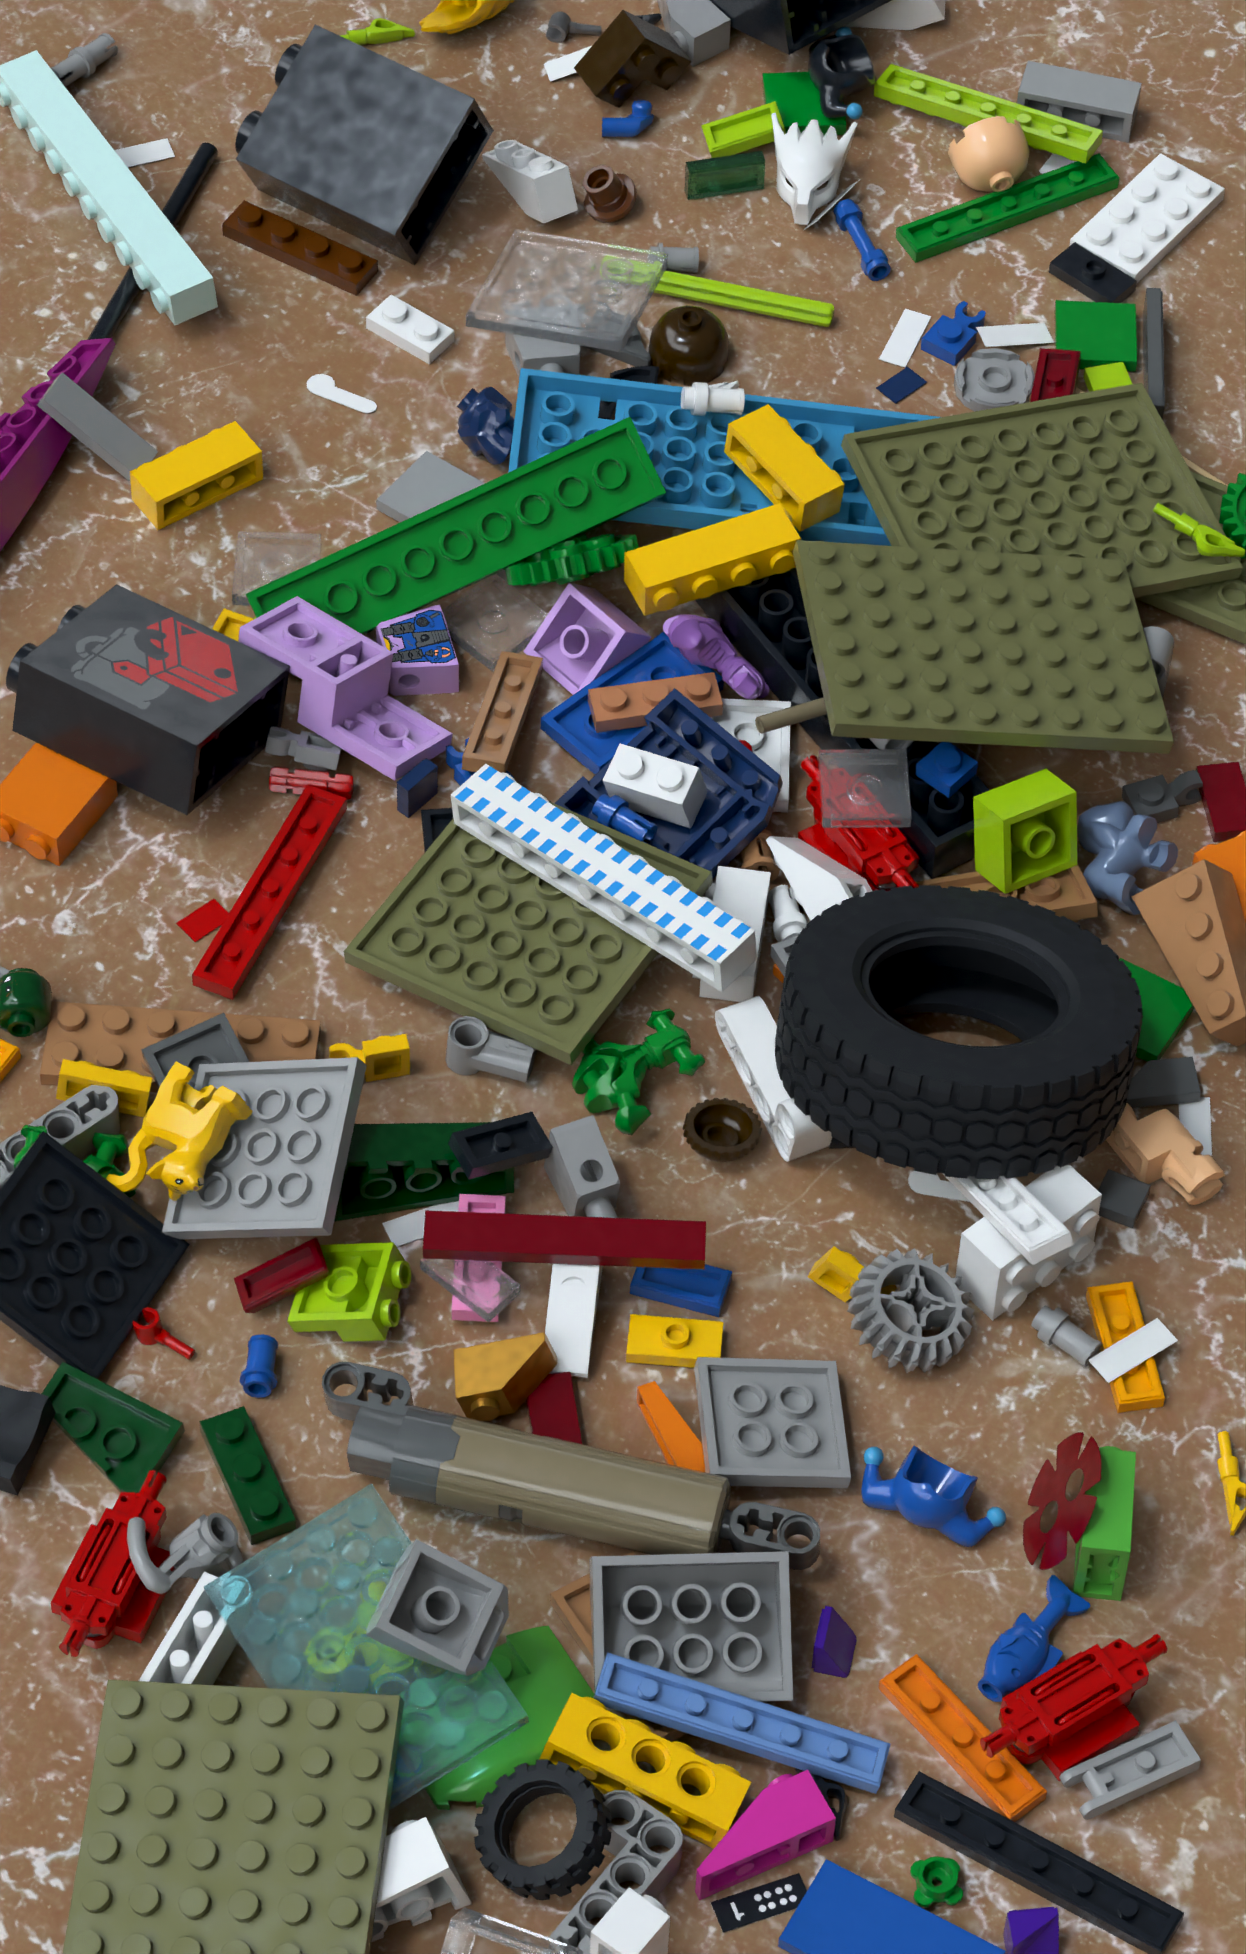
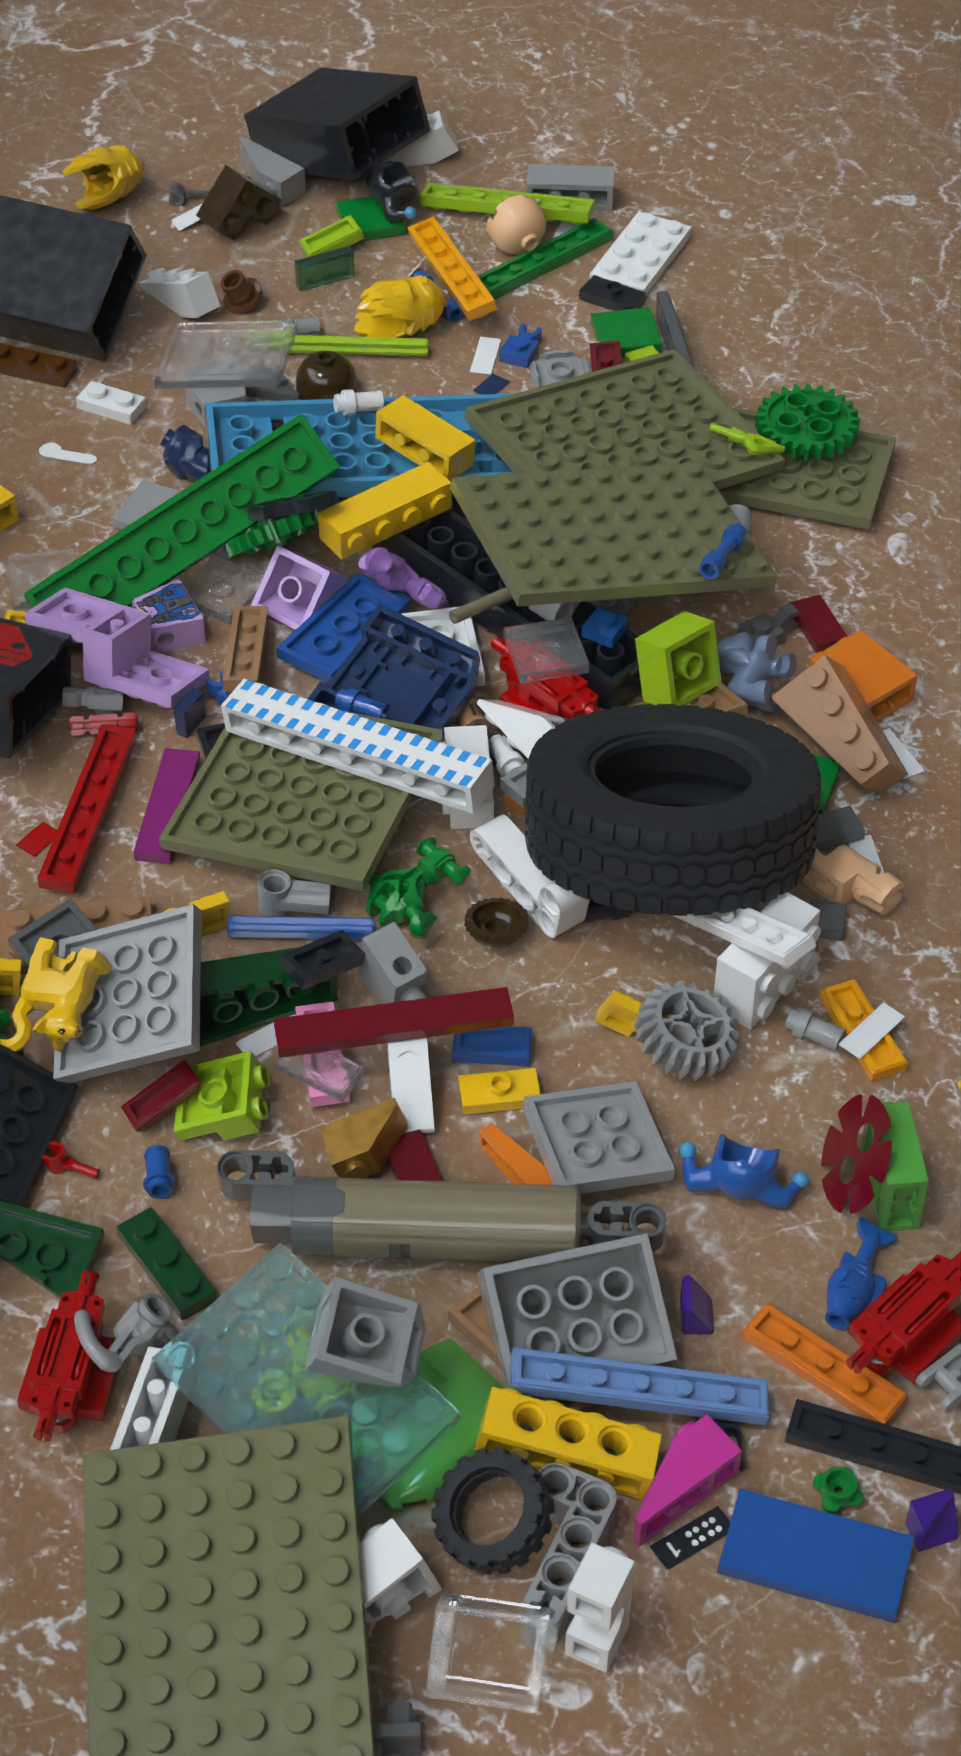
camera: 10 degrees left, 5 degrees down
(376, 878) = (172, 781): none -> magenta tile
(490, 1093) = (297, 927): none -> blue axle
(594, 538) = (291, 505): none -> black tile
(628, 704) = (345, 625): nougat plate -> none
(632, 124) = (245, 249): blue arm -> none
(656, 785) = (382, 675): white brick -> none
(806, 255) = (399, 307): none -> yellow head
(807, 163) = (385, 248): white piece -> none
(889, 205) = (452, 269): none -> light orange plate
(932, 1185) = (670, 935): white sticker -> none
(1015, 334) = (566, 340): white sticker -> none
(1091, 716) = (714, 562): none -> blue bar

